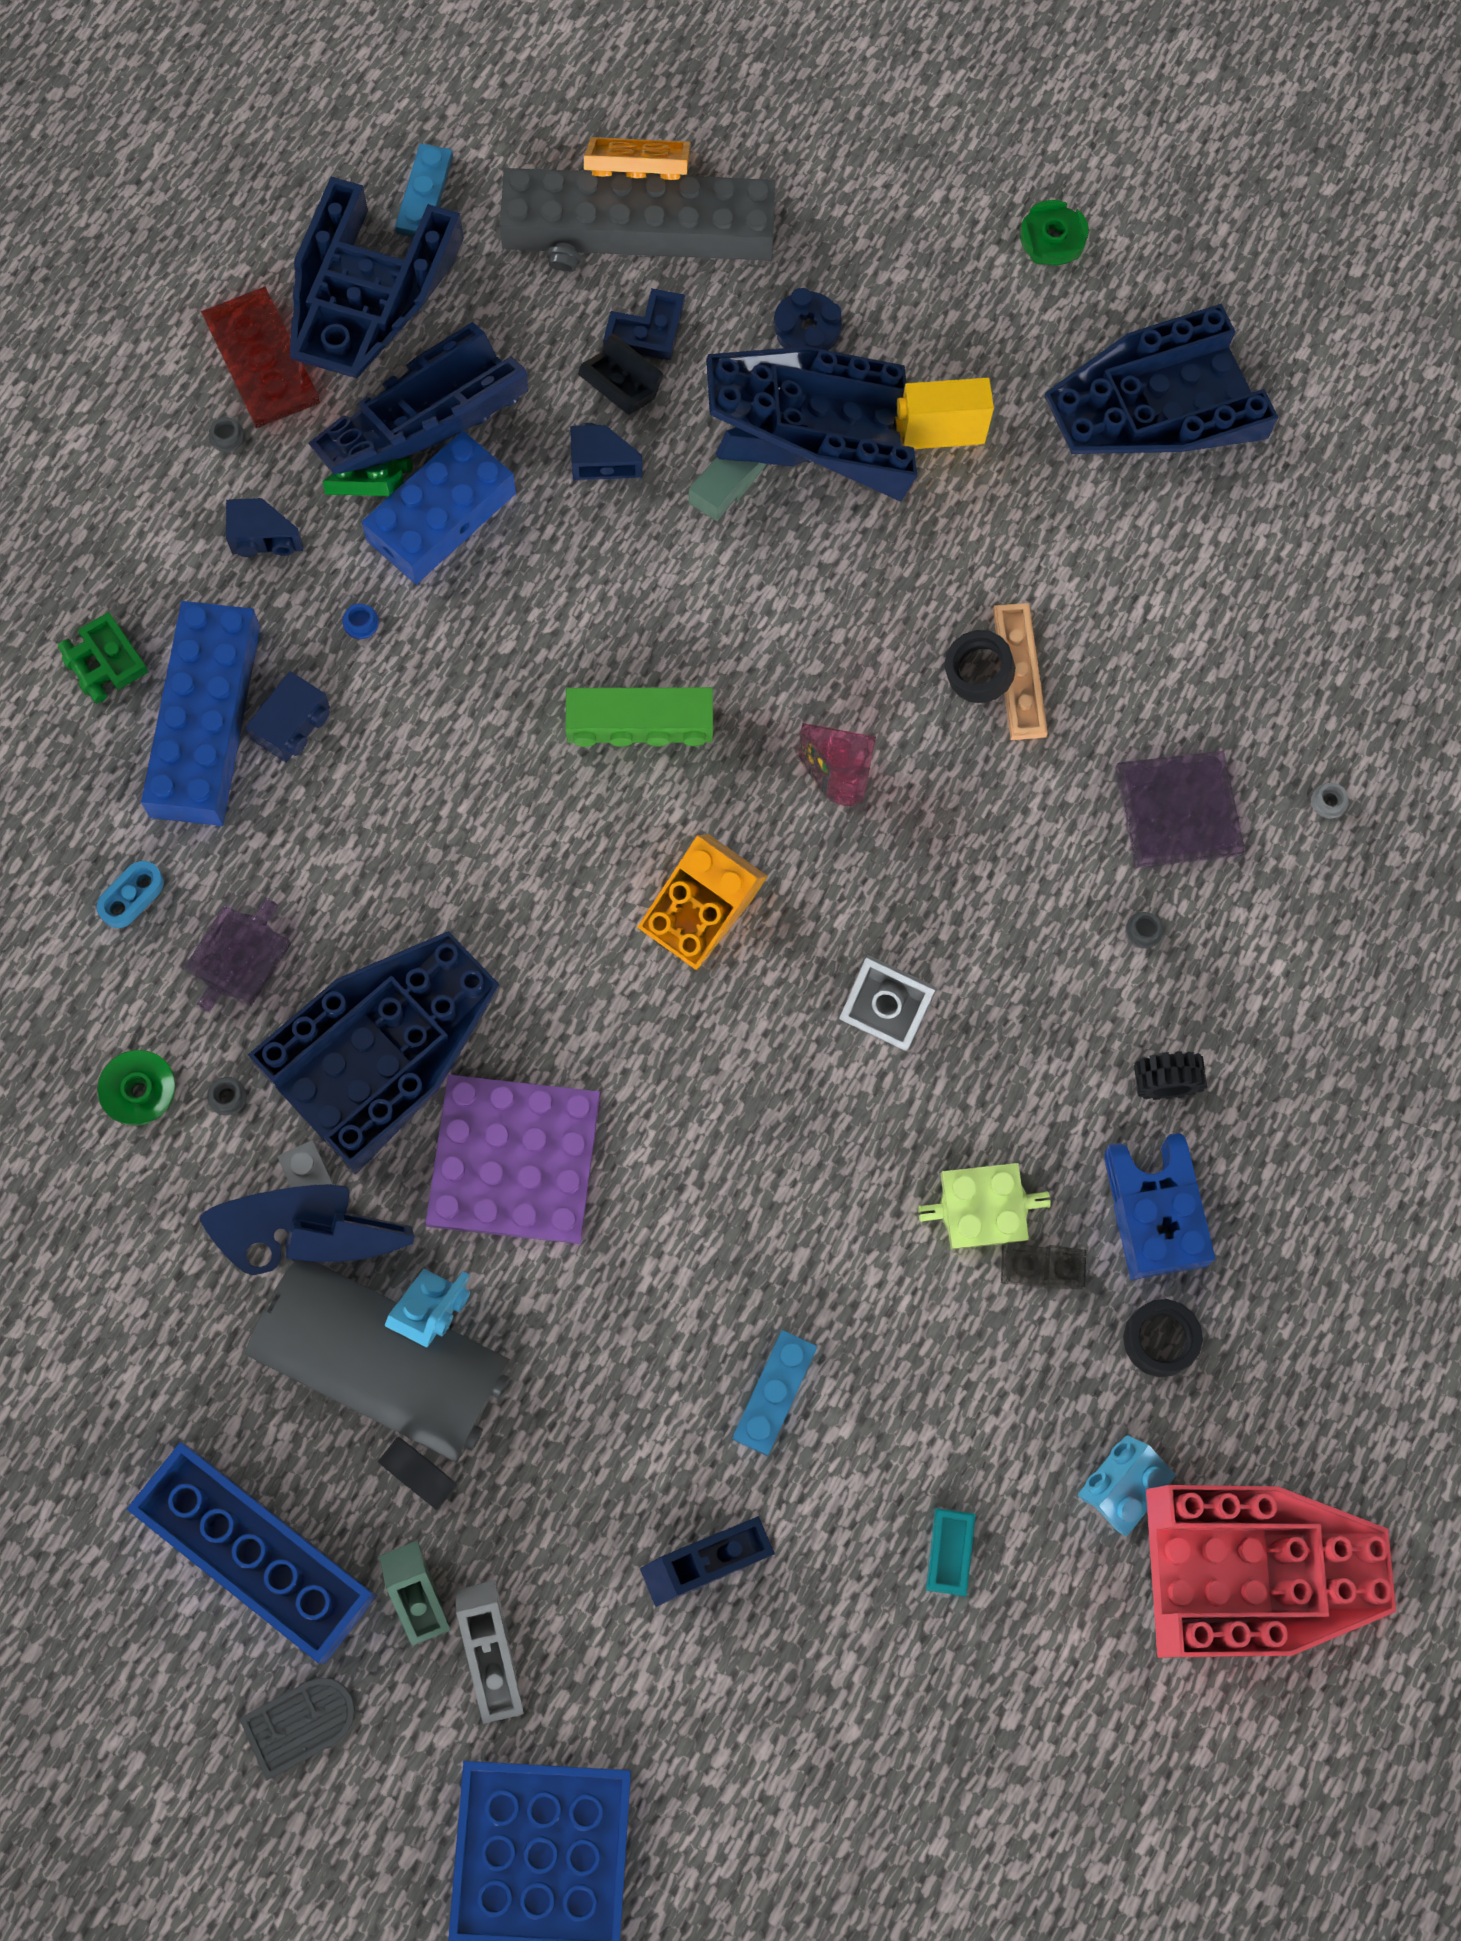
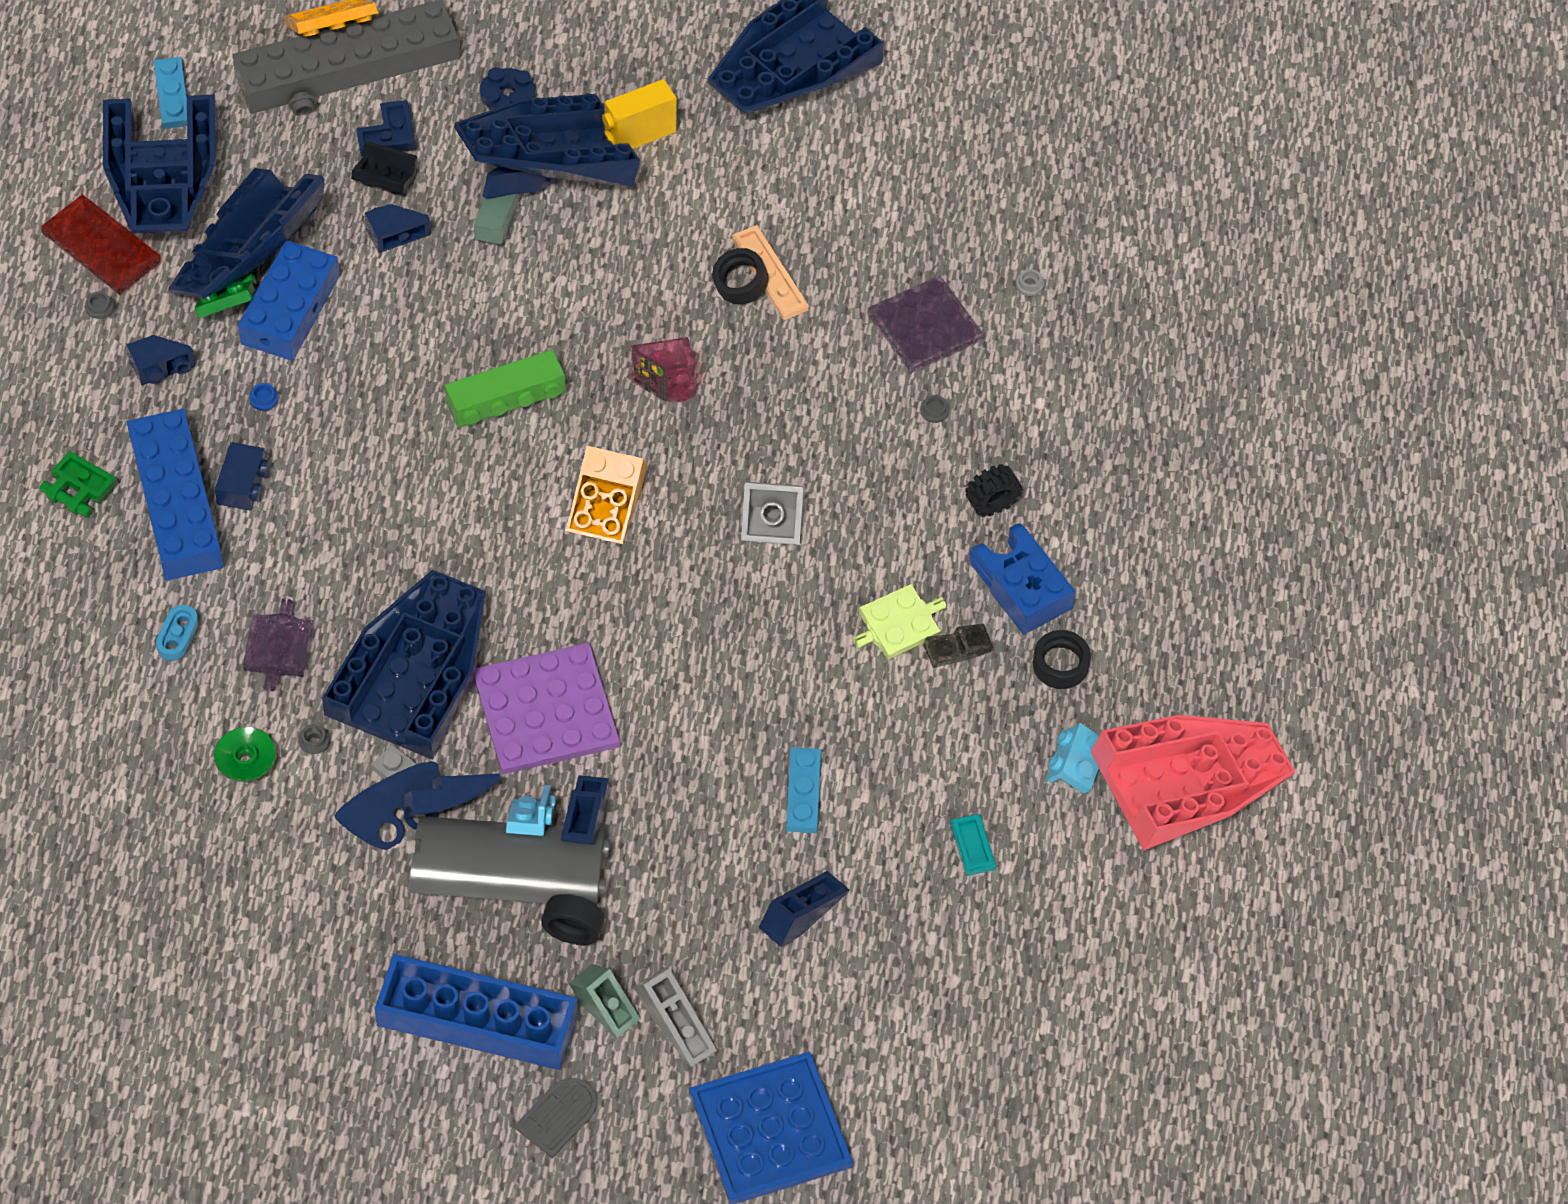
camera: 20 degrees left, 15 degrees down
(493, 1331) = (586, 809): none -> dark blue slope

